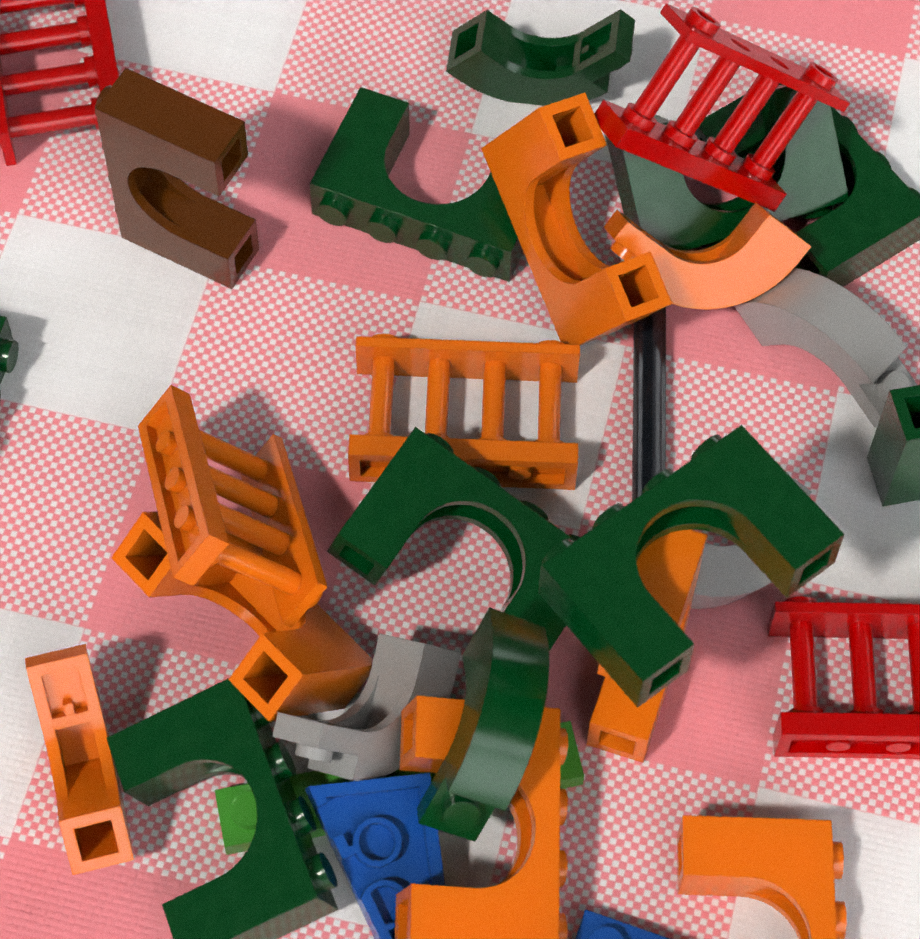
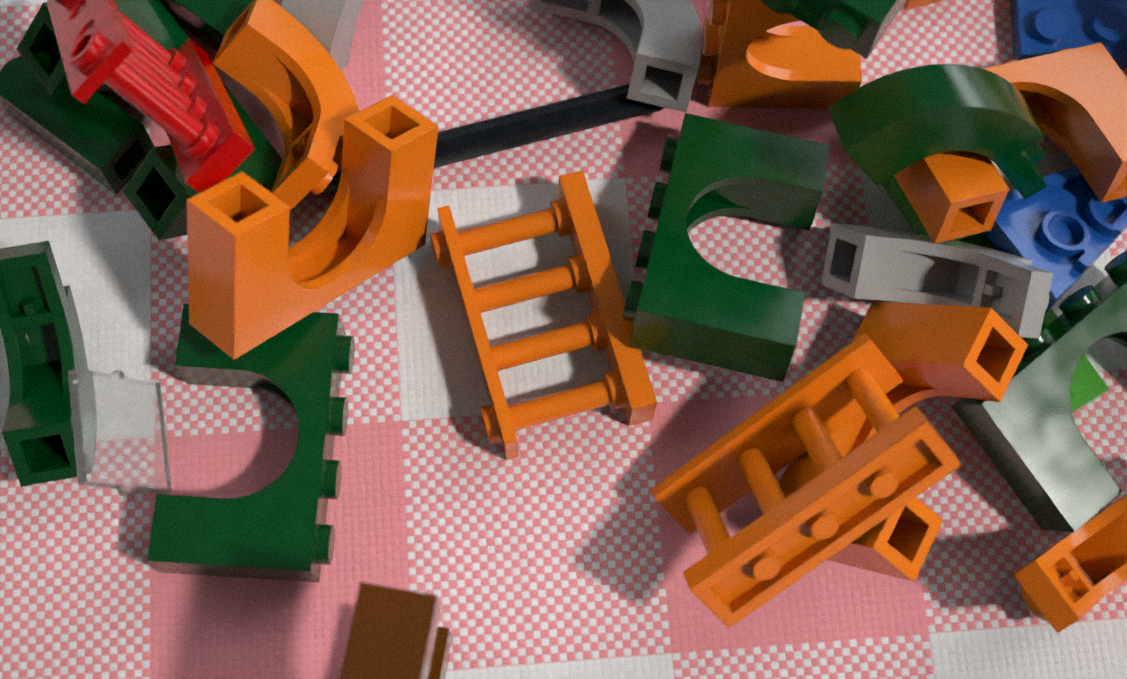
camera: 110 degrees left, 10 degrees up
(470, 96) = (119, 432): none -> clear piece

